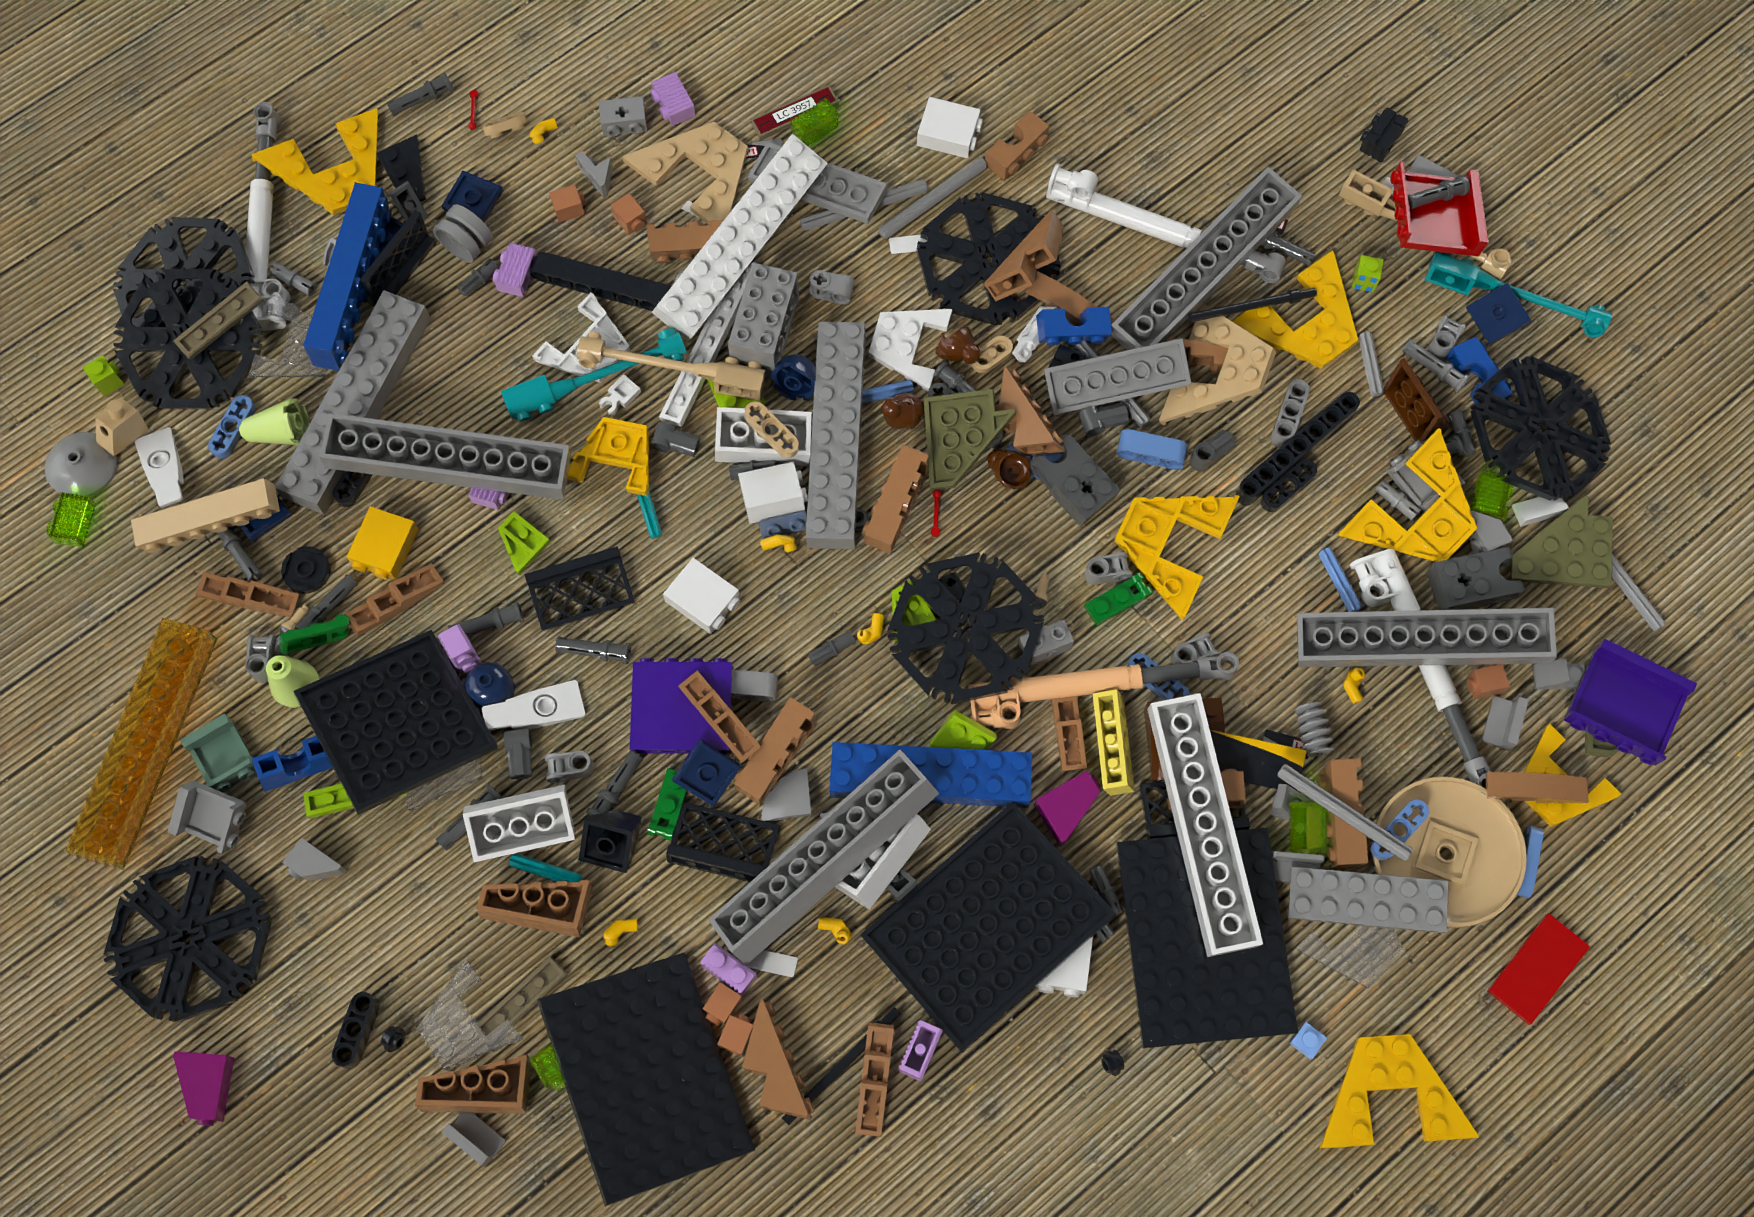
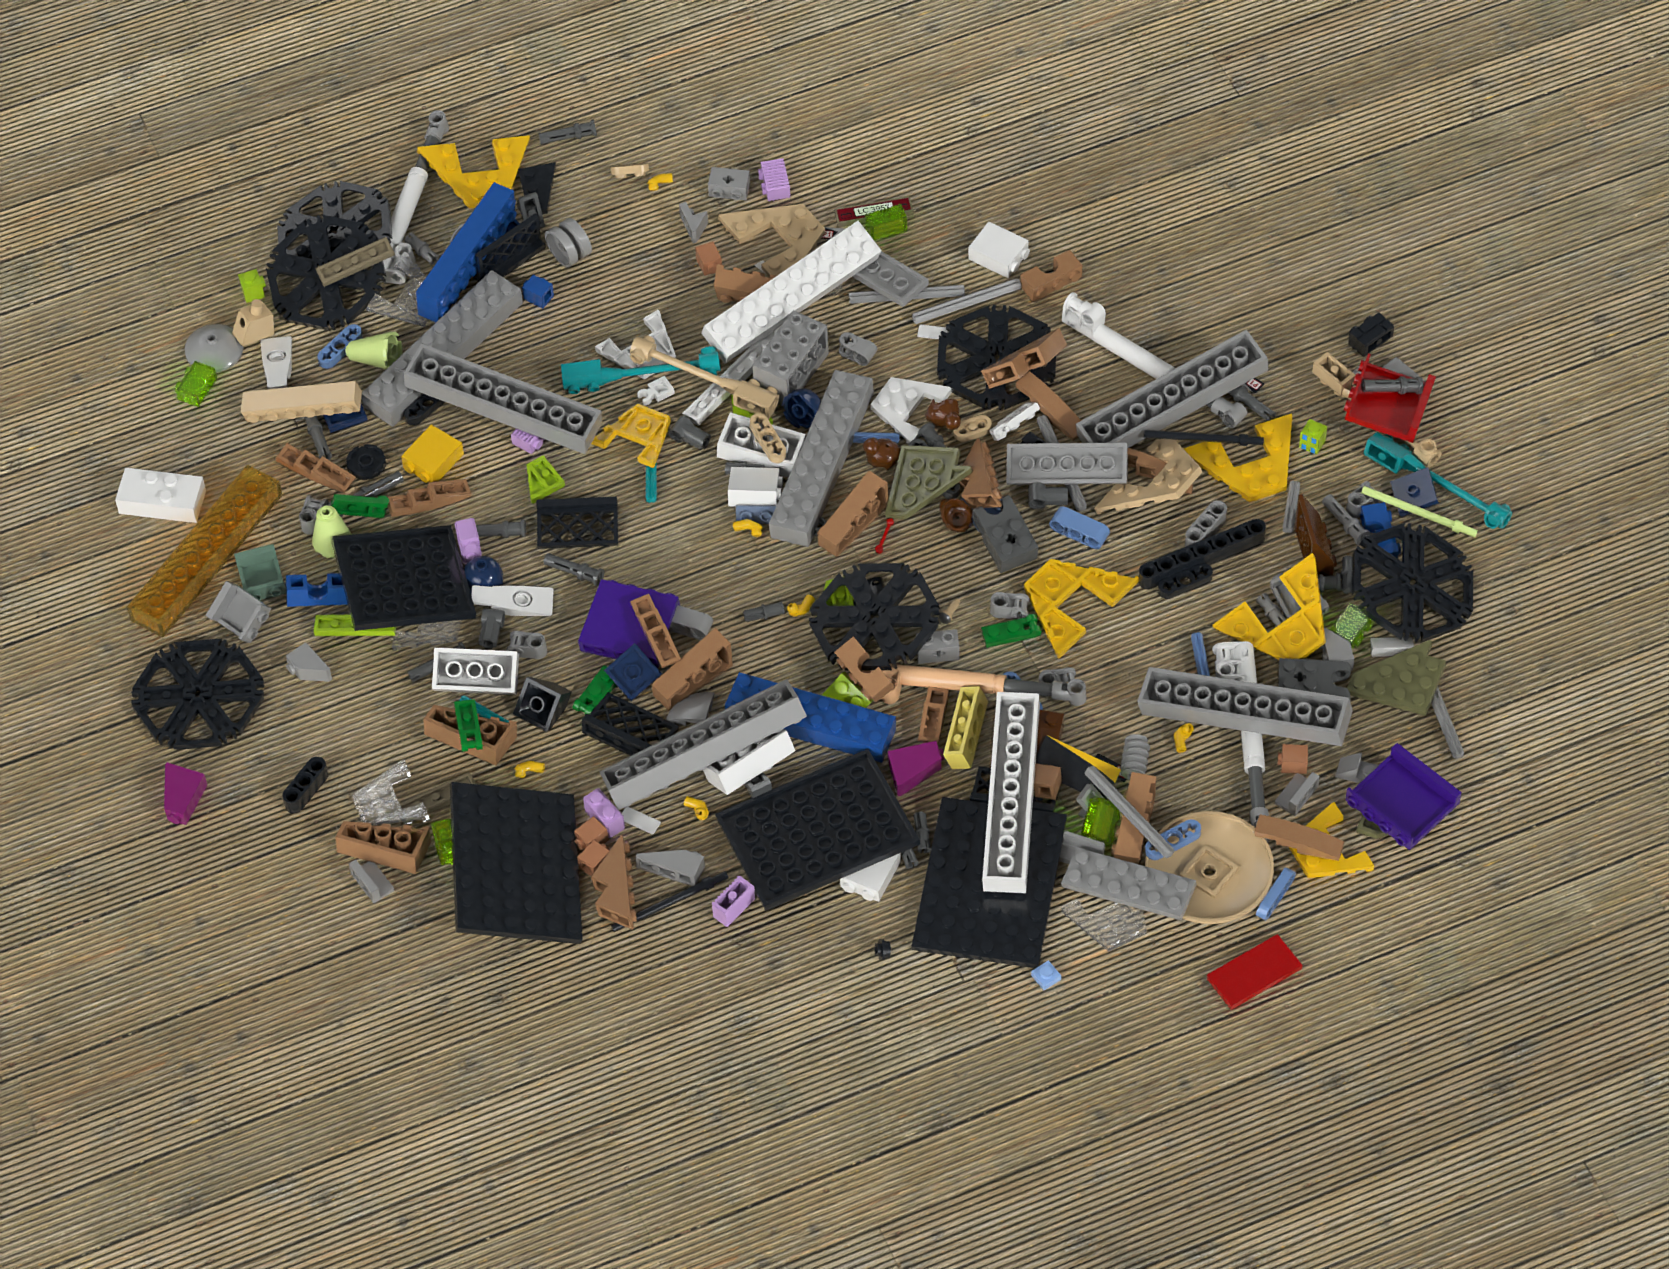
camera: 20 degrees right, 15 degrees down
(67, 680) = (160, 495): none -> white brick
(393, 1038) = (331, 798): black plate -> none
(444, 301) = (537, 291): none -> blue brick
(473, 95) = (612, 142): red hinge -> none
(473, 194) = (589, 216): dark blue plate -> none
(478, 277) = (571, 279): dark grey axle -> none
(515, 269) = (603, 280): lavender brick -> none
(533, 906) = (468, 724): none -> green plate
(567, 203) = (661, 239): nougat brick -> none
(598, 280) = (668, 303): black beam -> none
(609, 796) = (551, 673): dark grey pin -> none
(702, 596) = (672, 550): white brick -> none
(837, 1016) = (675, 865): none -> light grey slope
(874, 1079) = (691, 915): medium nougat slope -> none
(995, 721) = (874, 684): none -> medium nougat arch
(1055, 328) = (1028, 418): blue arch -> none
(1211, 450) = (1123, 540): dark grey piece -> none
(1390, 1065) = (1100, 1007): yellow wing -> none
(1552, 343) = (1456, 526): none -> yellowish green bar

